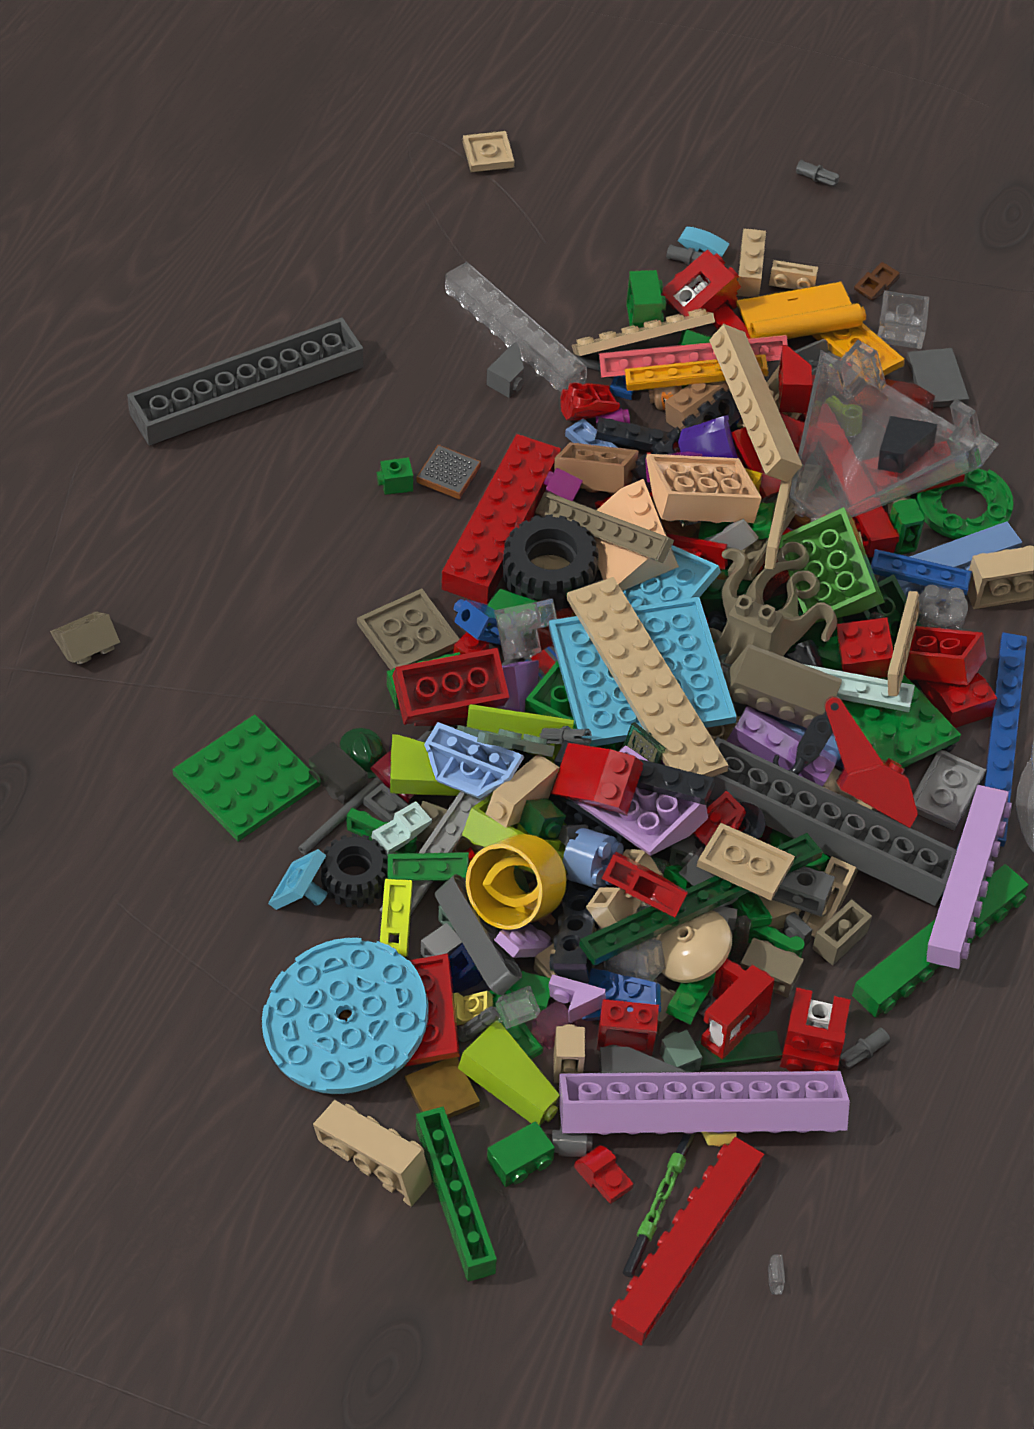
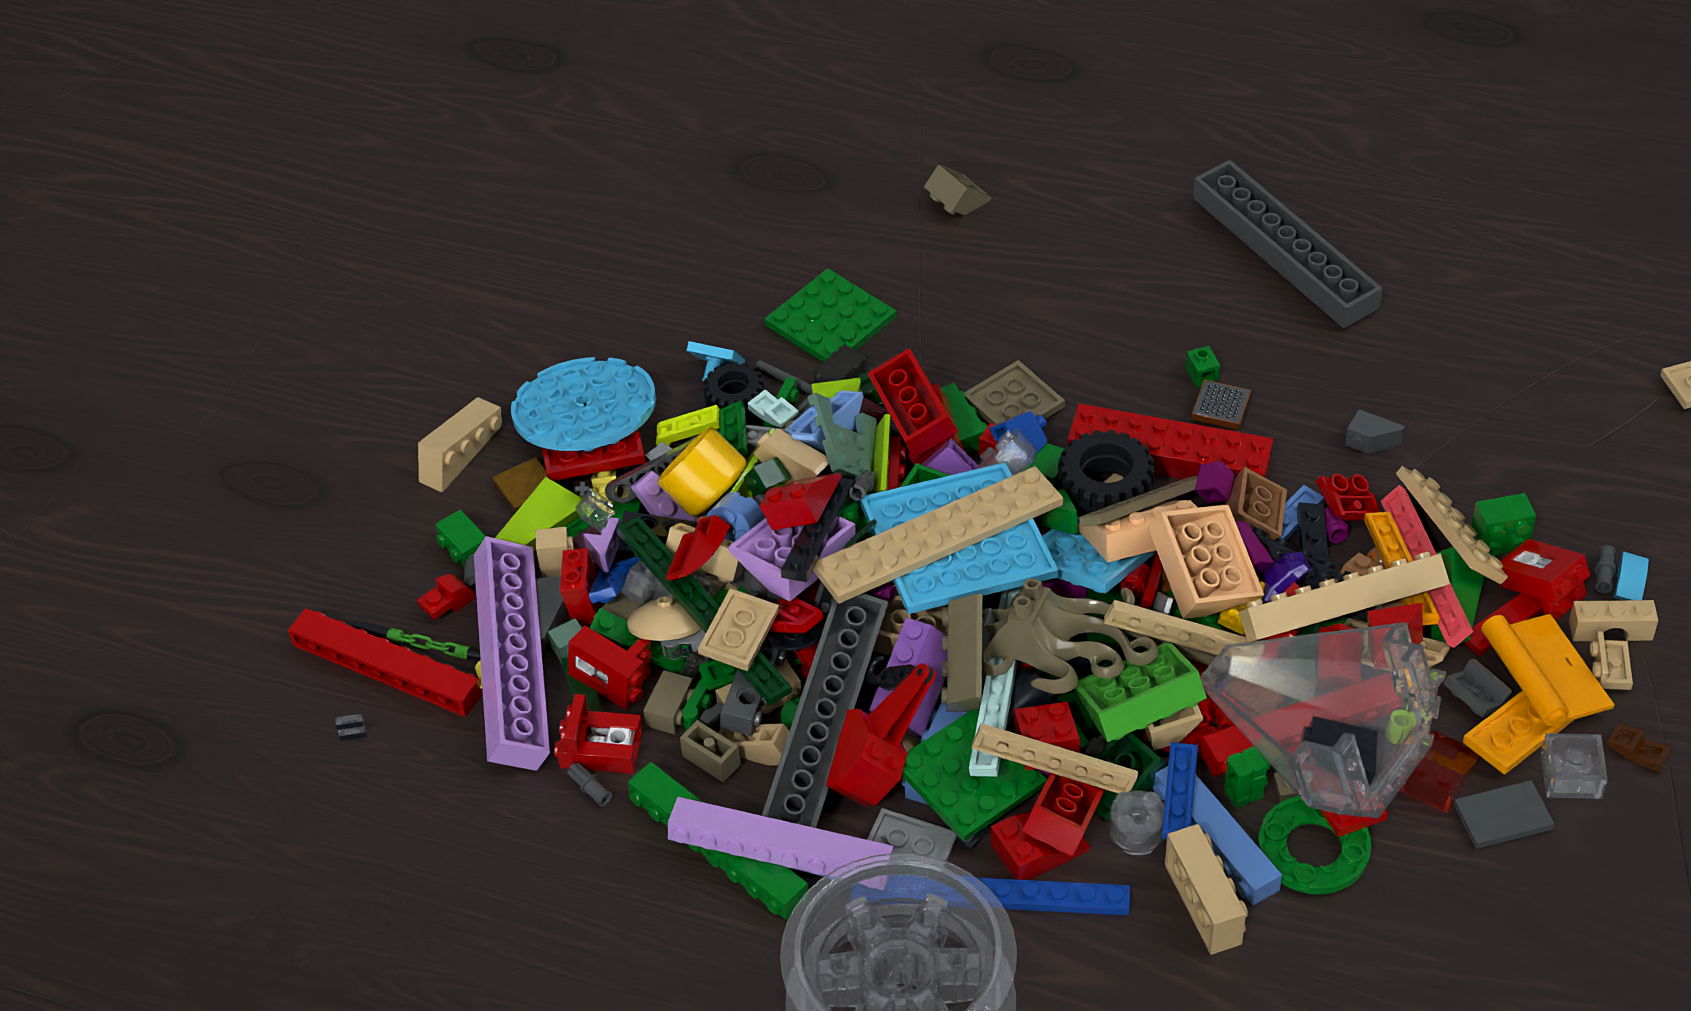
camera: 90 degrees right, 5 degrees down
(455, 1194) = (419, 496): green brick -> none
(514, 325) = (1436, 429): clear brick -> none

